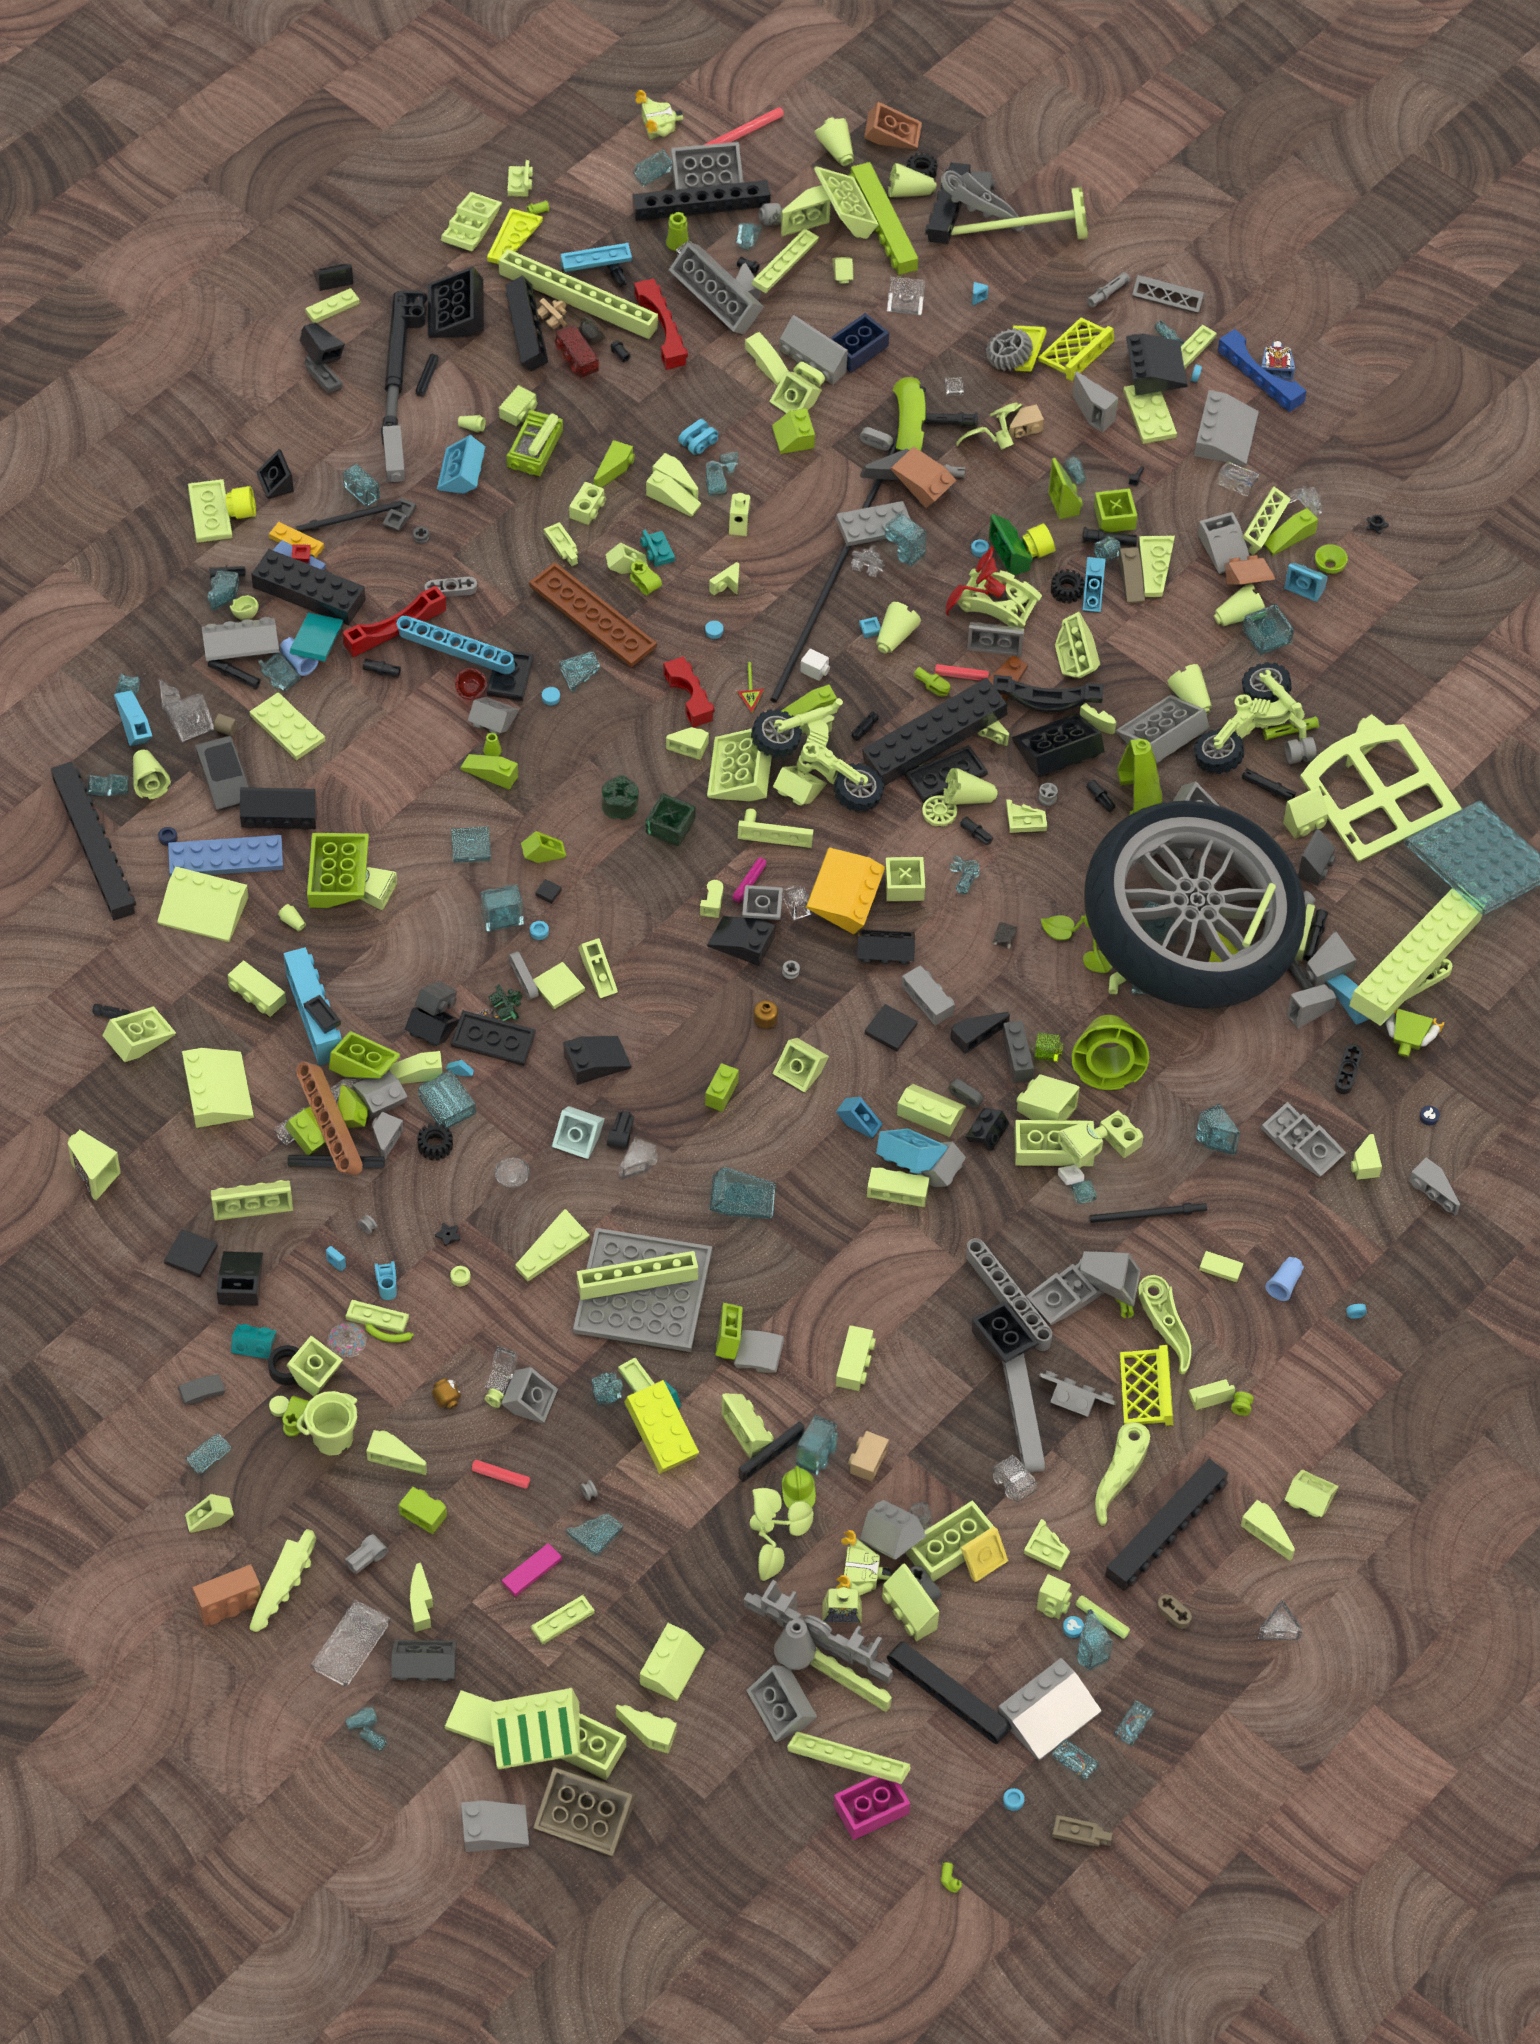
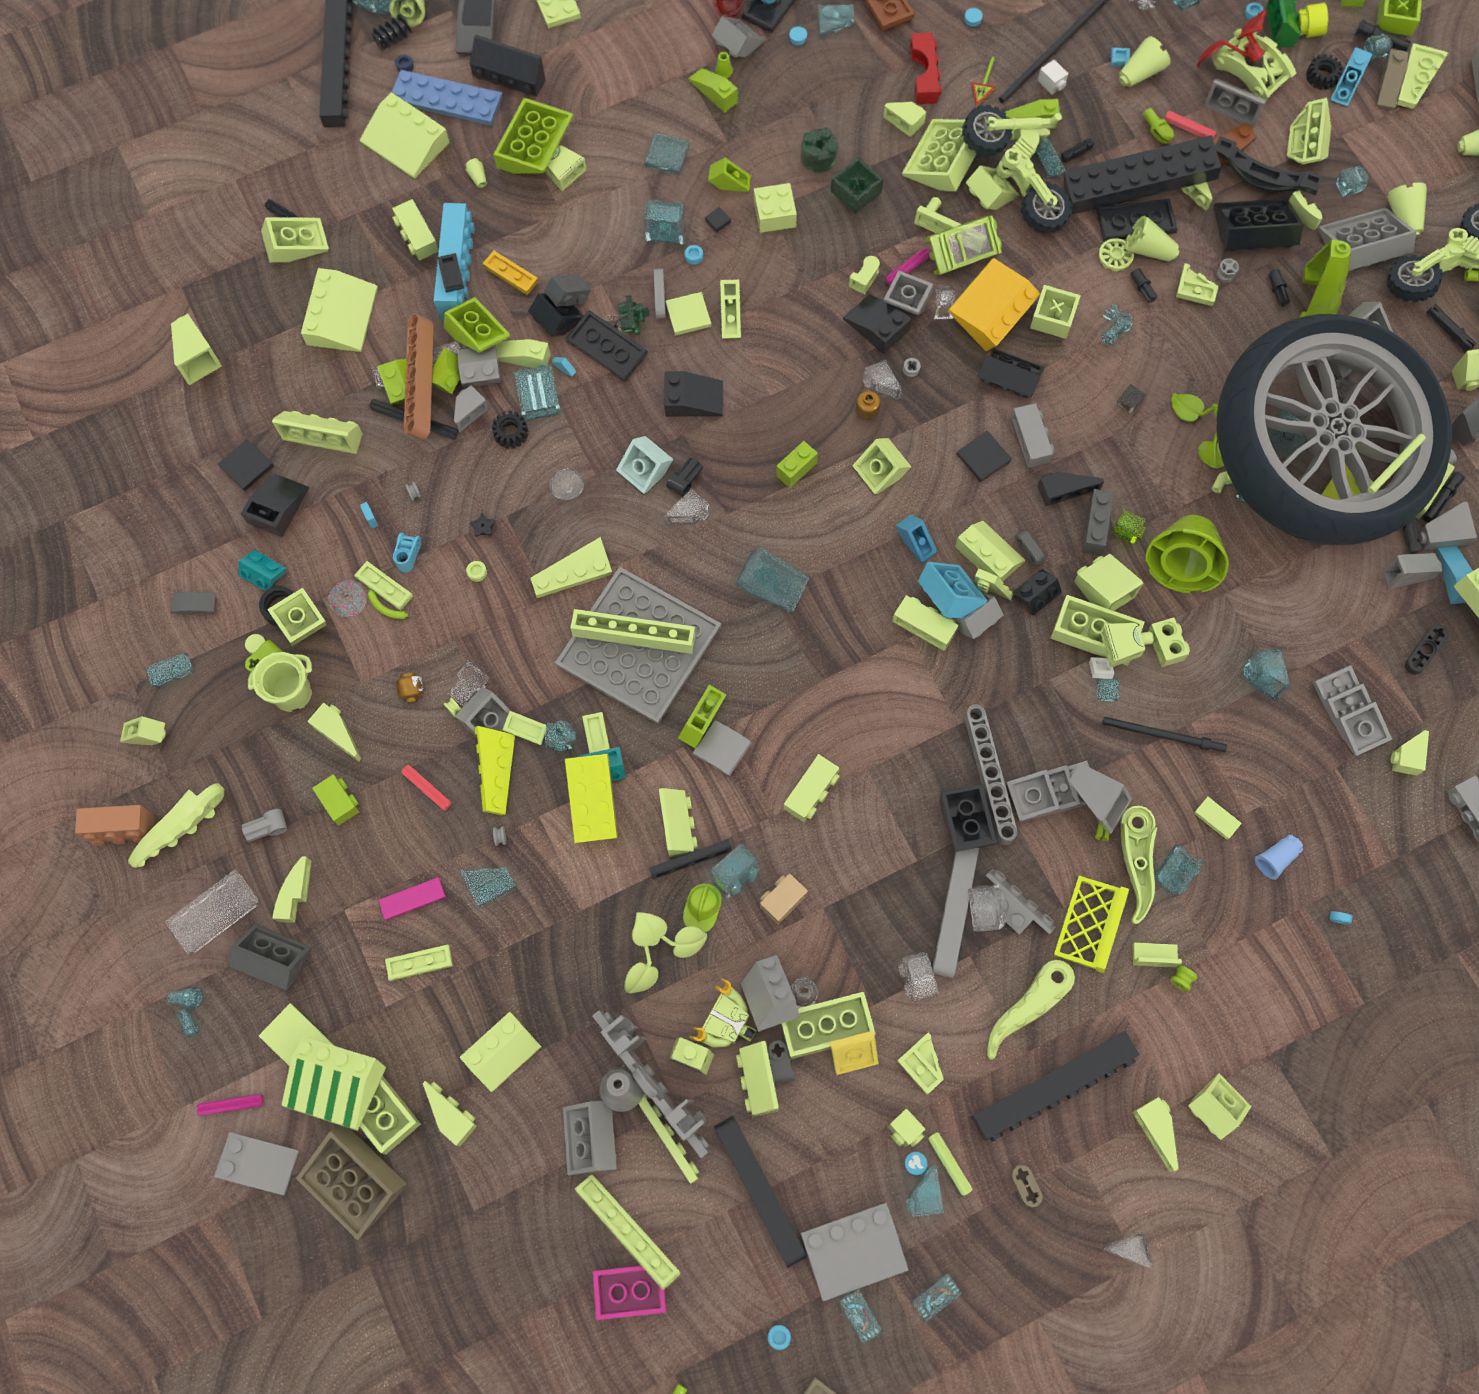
camera: 25 degrees right, 15 degrees up
(142, 809) = (391, 31): none -> black piece
(369, 1000) = (510, 272): none -> yellow plate
(445, 1790) = (230, 1104): none -> dark pink axle
(559, 1434) = (495, 758): none -> neon yellow wing
(570, 1393) = (525, 727): none -> yellowish green tile
(600, 863) = (775, 207): none -> yellowish green brick
(770, 988) = (882, 381): none -> clear slope
(796, 843) = (964, 244): none -> lime door
(842, 741) = (1050, 158): none -> clear light blue hinge
(945, 1131) = (989, 582): none -> yellowish green wing
(1050, 1400) = (986, 907): none -> clear brick
(1130, 679) = (1352, 180): none -> clear light blue brick
(1203, 1319) = (1177, 870): none -> clear light blue bracket

